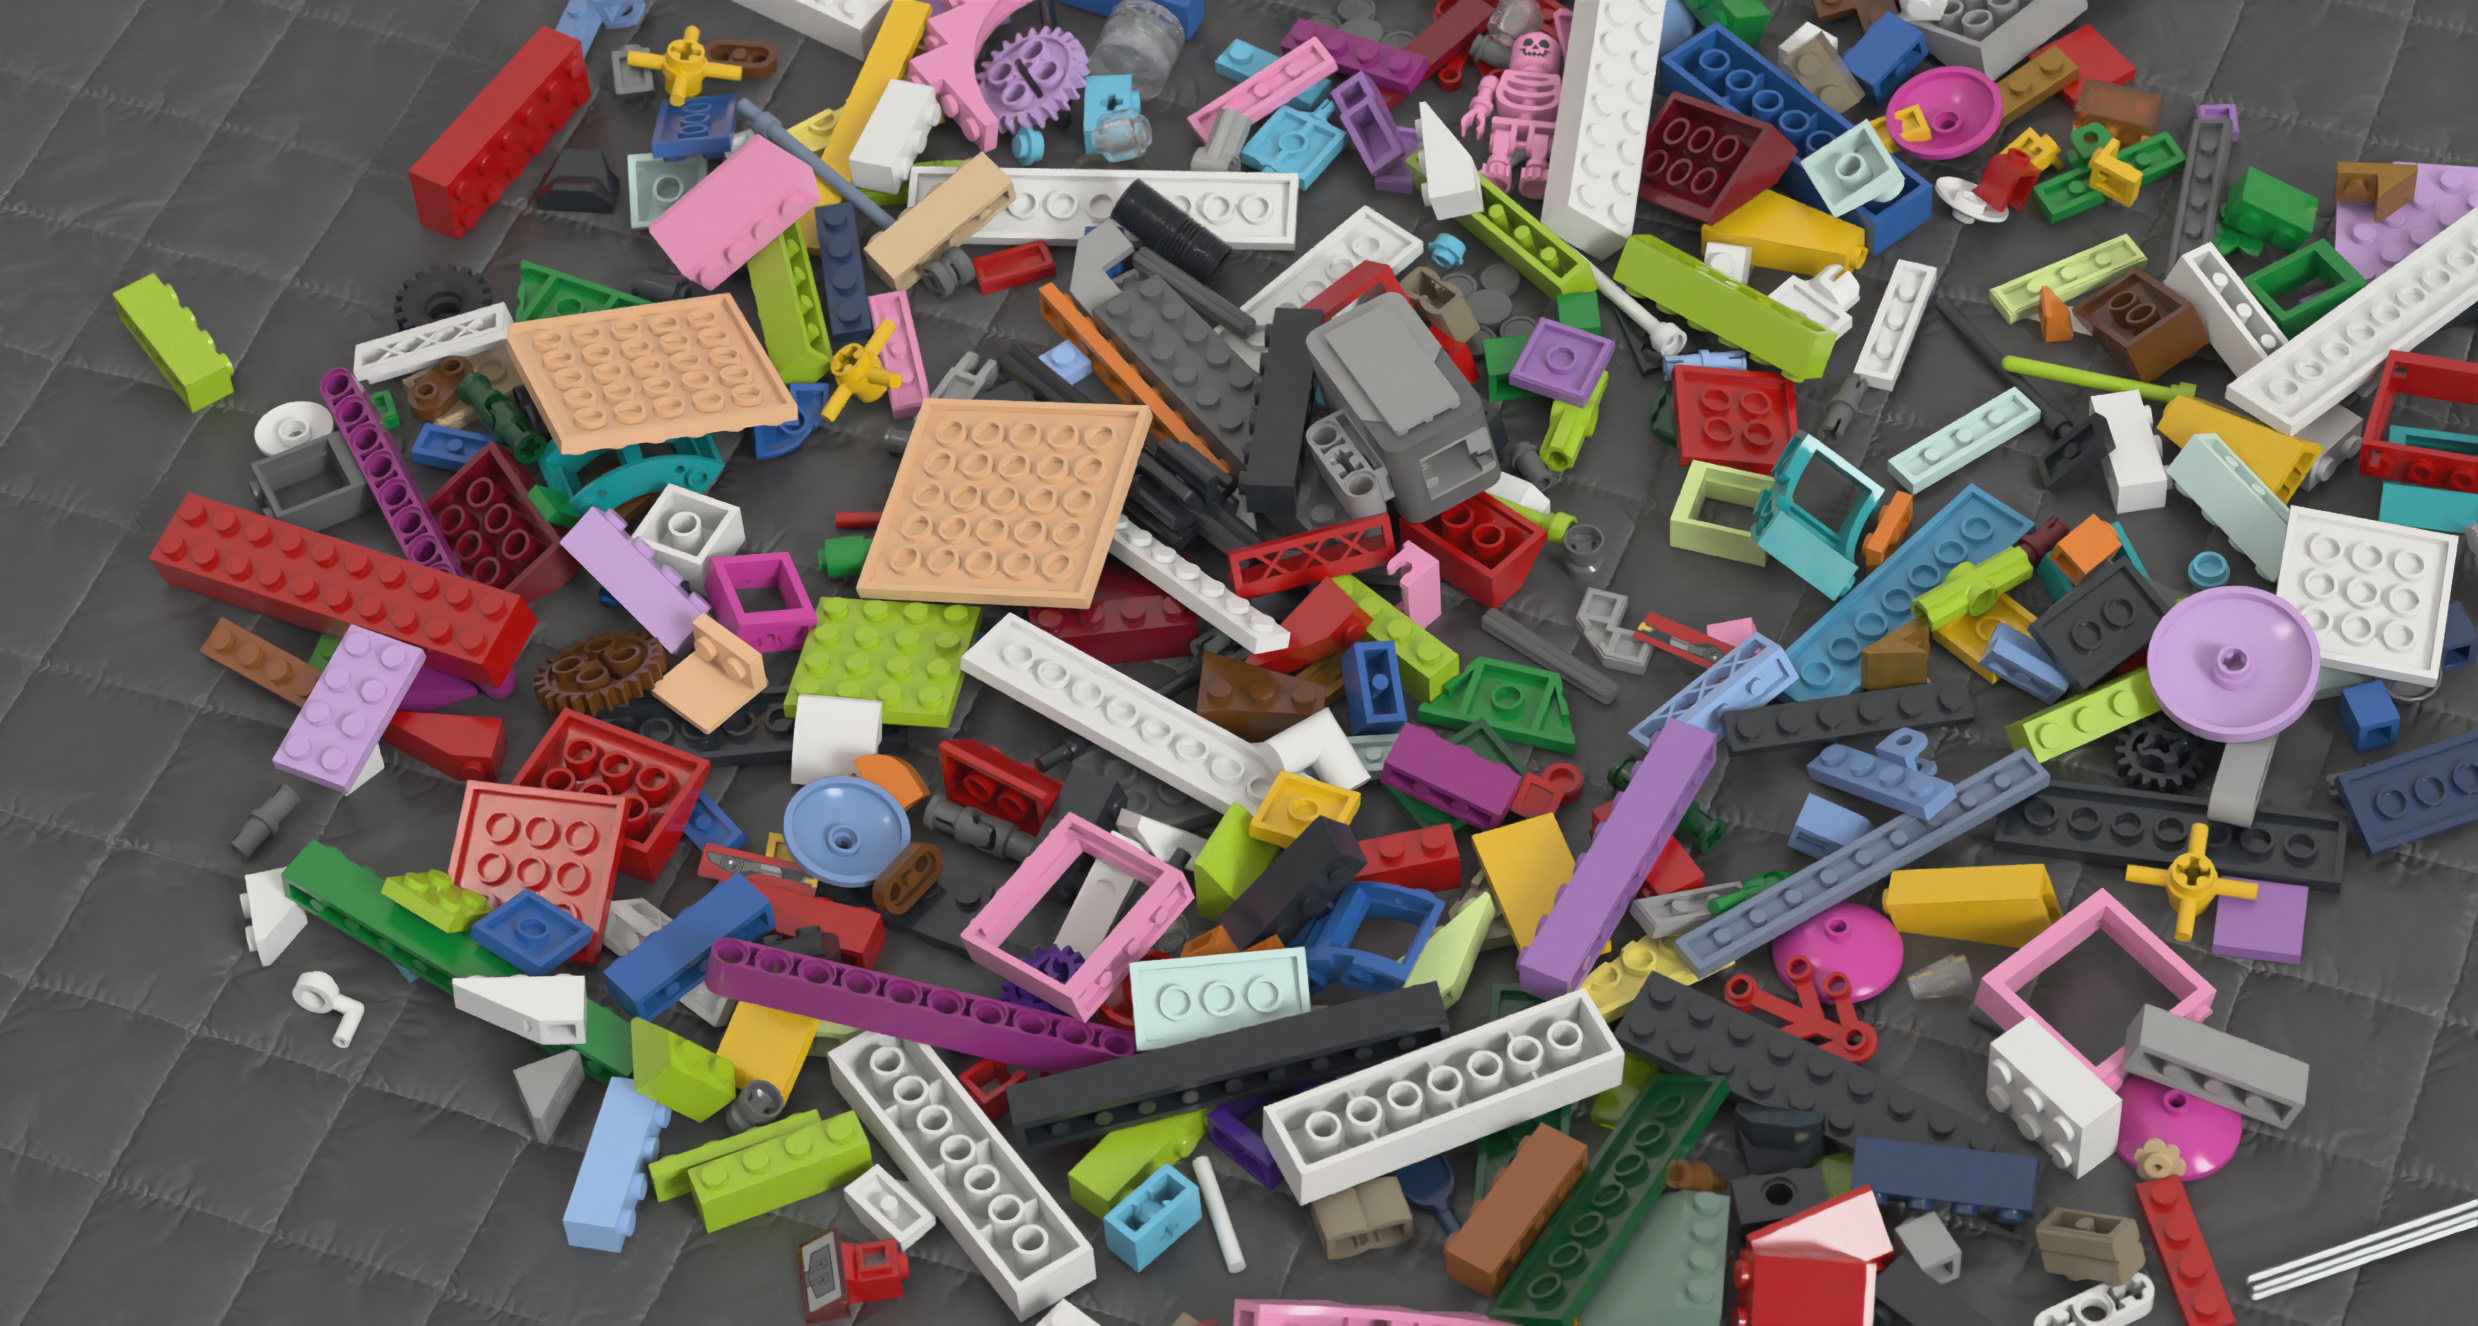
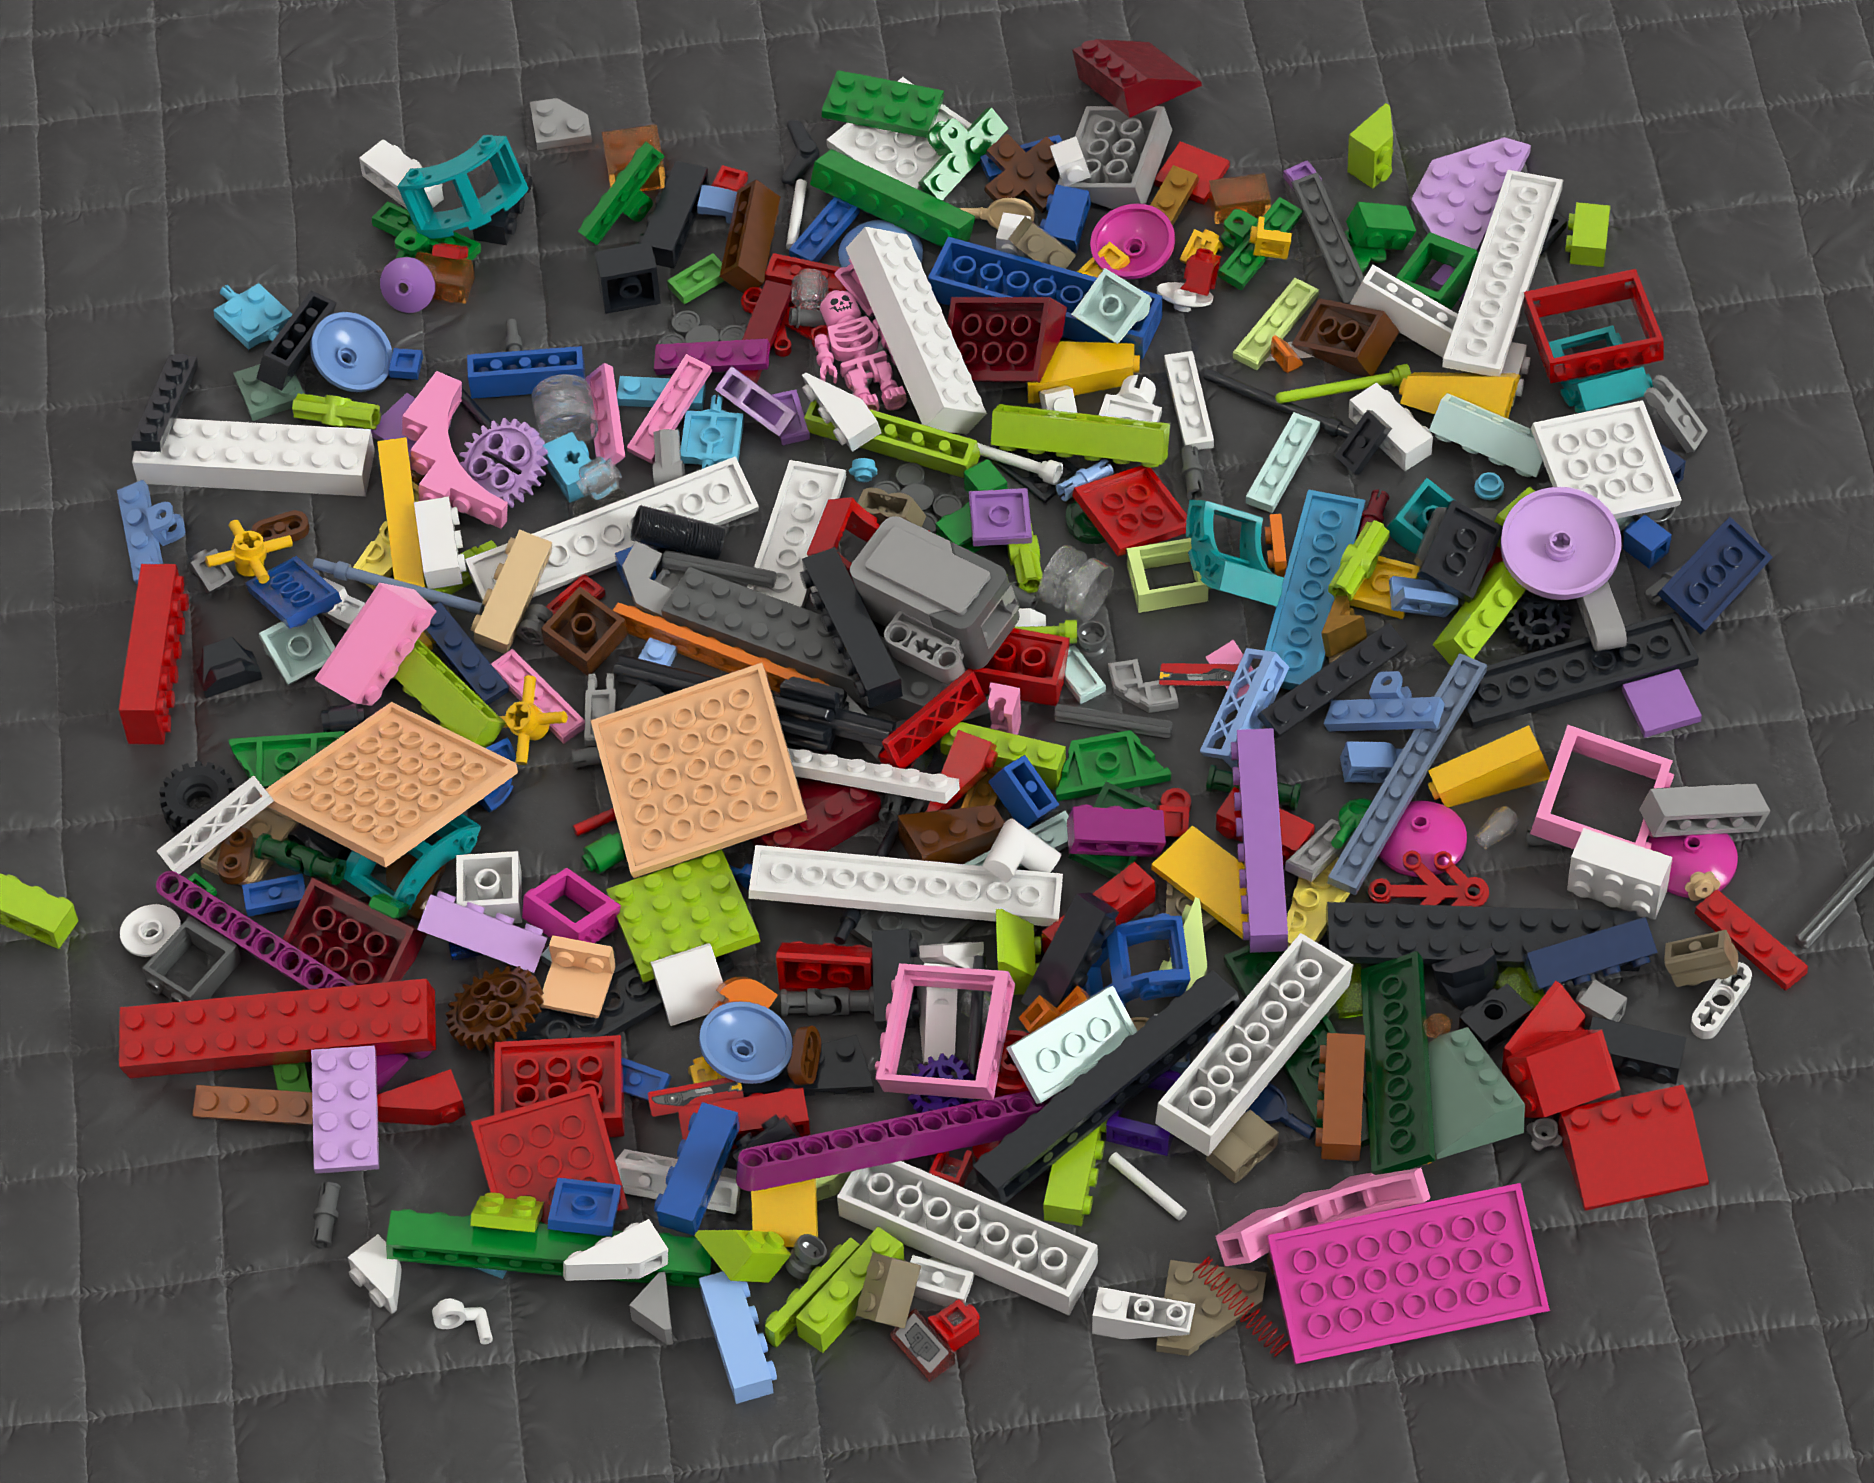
camera: 30 degrees left, 5 degrees up
(814, 1188) = (888, 1290): none -> dark tan brick
(992, 300) = (584, 631): none -> reddish brown brick
(1028, 146) = (529, 511): medium azure plate -> none
(1152, 1217) = (1114, 1207): medium azure brick -> none
(1187, 74) = (609, 437): none -> bright pink plate
(1295, 803) = (1042, 896): yellow plate -> none
(1546, 588) = (1081, 677): none -> light aqua tile
(1603, 474) = (1075, 583): none -> clear wheel
(1815, 14) = (995, 210): none -> tan piece
(2085, 549) = (1422, 505): orange brick -> none
(2189, 870) = (1603, 696): yellow bar -> none
(2321, 115) = (1371, 148): none -> lime slope
(2377, 183) = (1438, 180): pearl gold slope -> none

